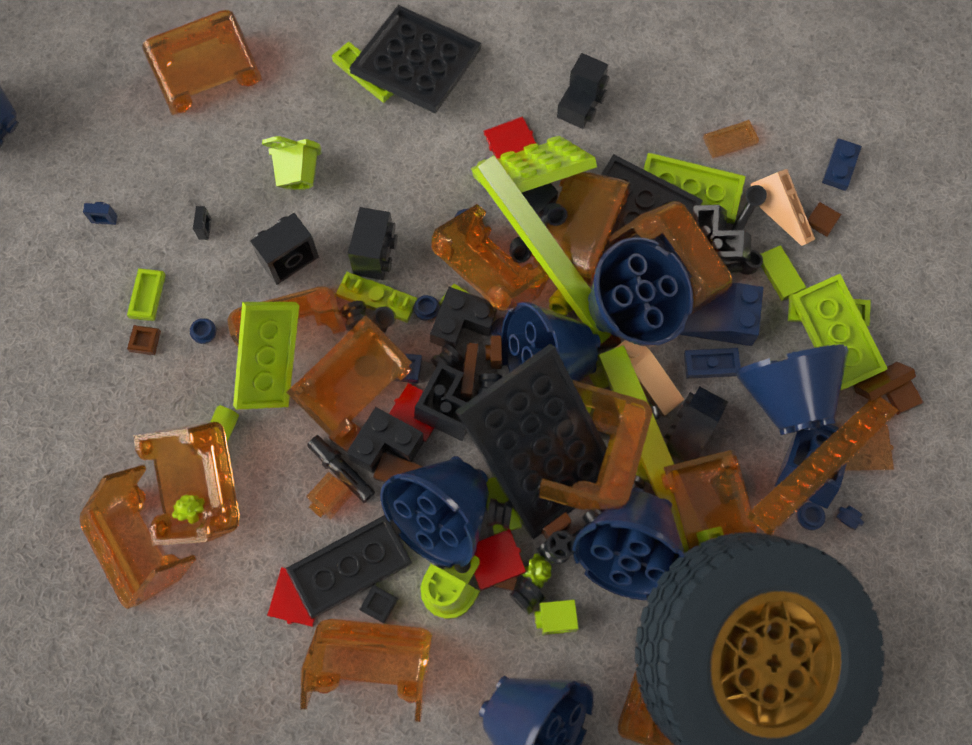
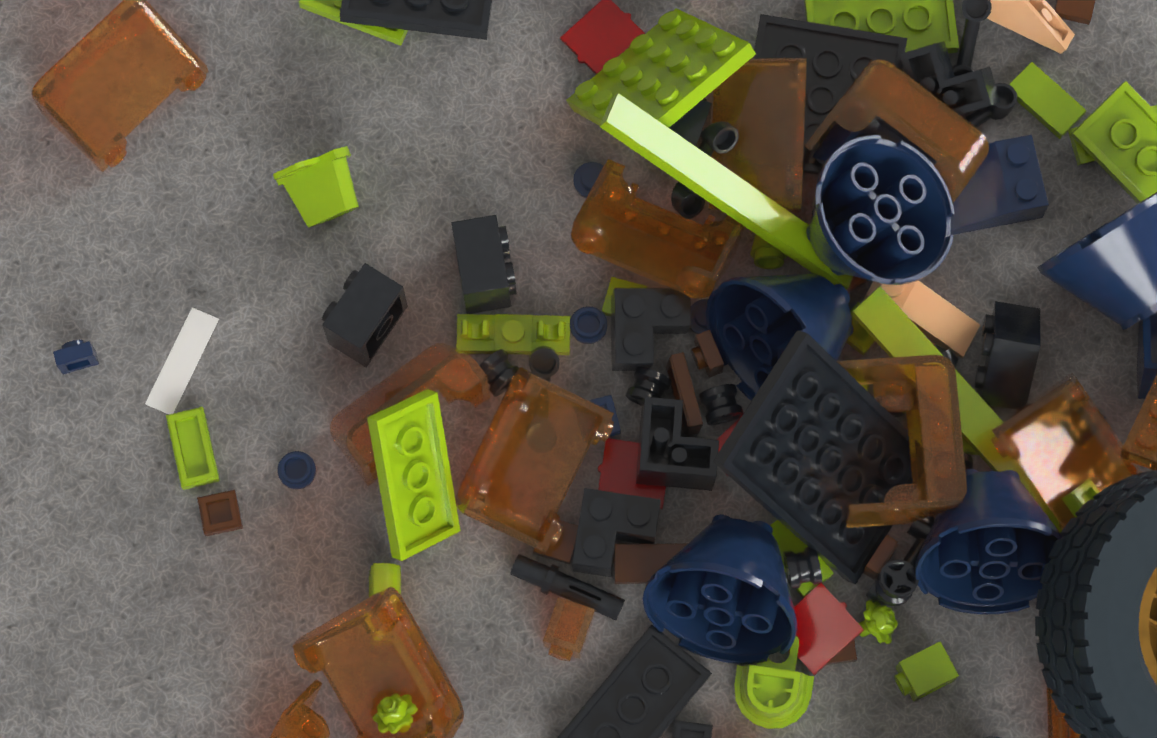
camera: 20 degrees left, 5 degrees up
(165, 241) = (182, 361): none -> white sticker
(202, 223) = (226, 318): black tile -> none
(527, 596) = (877, 660): black wheel -> none
(711, 363) = (999, 262): dark blue plate -> none

